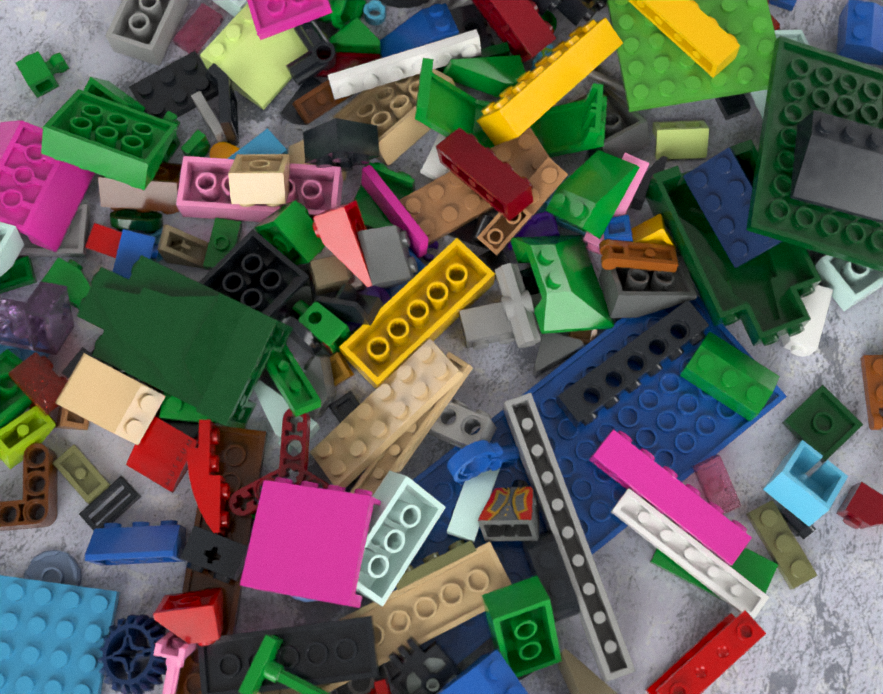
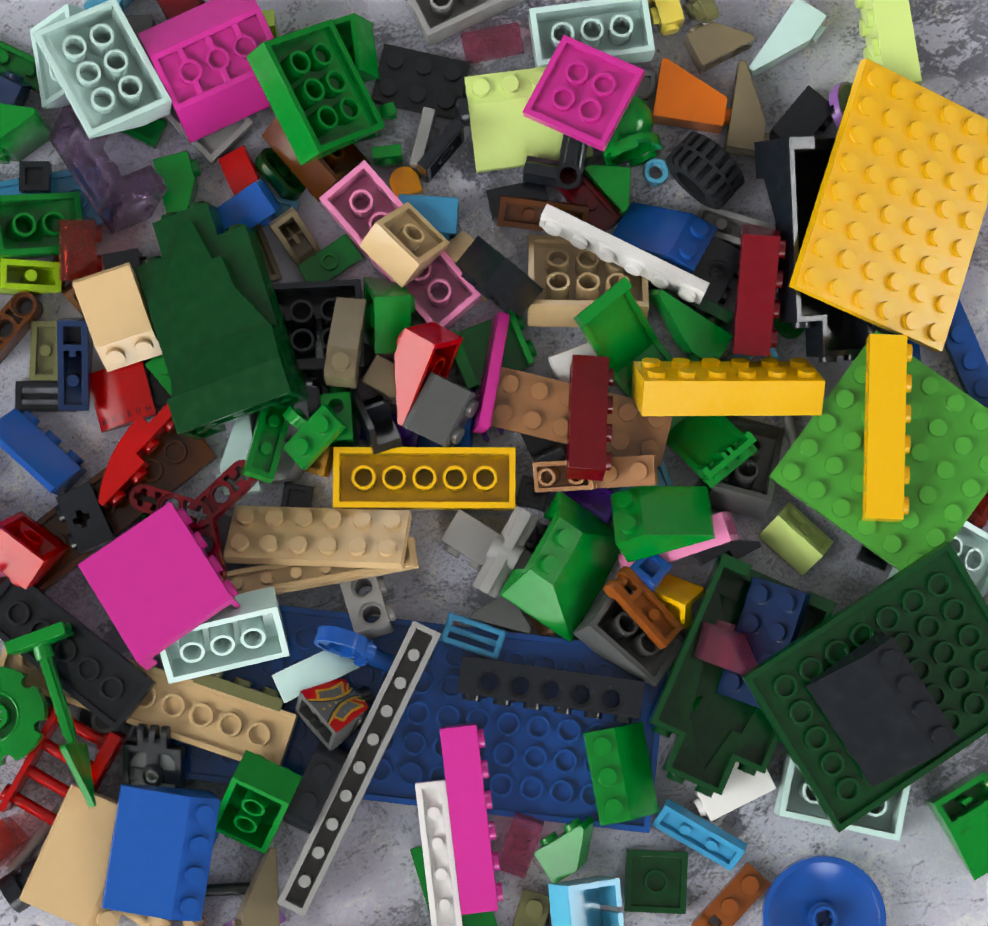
camera: 40 degrees right, 10 degrees up
(109, 461) = (74, 364): none -> dark blue slope
(283, 272) = (345, 343): none -> dark tan slope
(319, 347) = (313, 434): none -> green plate
(542, 373) = (497, 644): none -> dark azure tile
(714, 230) = (725, 647): none -> clear pink slope
(749, 460) = (565, 852): none -> slope
(817, 367) = (699, 834): none -> dark azure plate

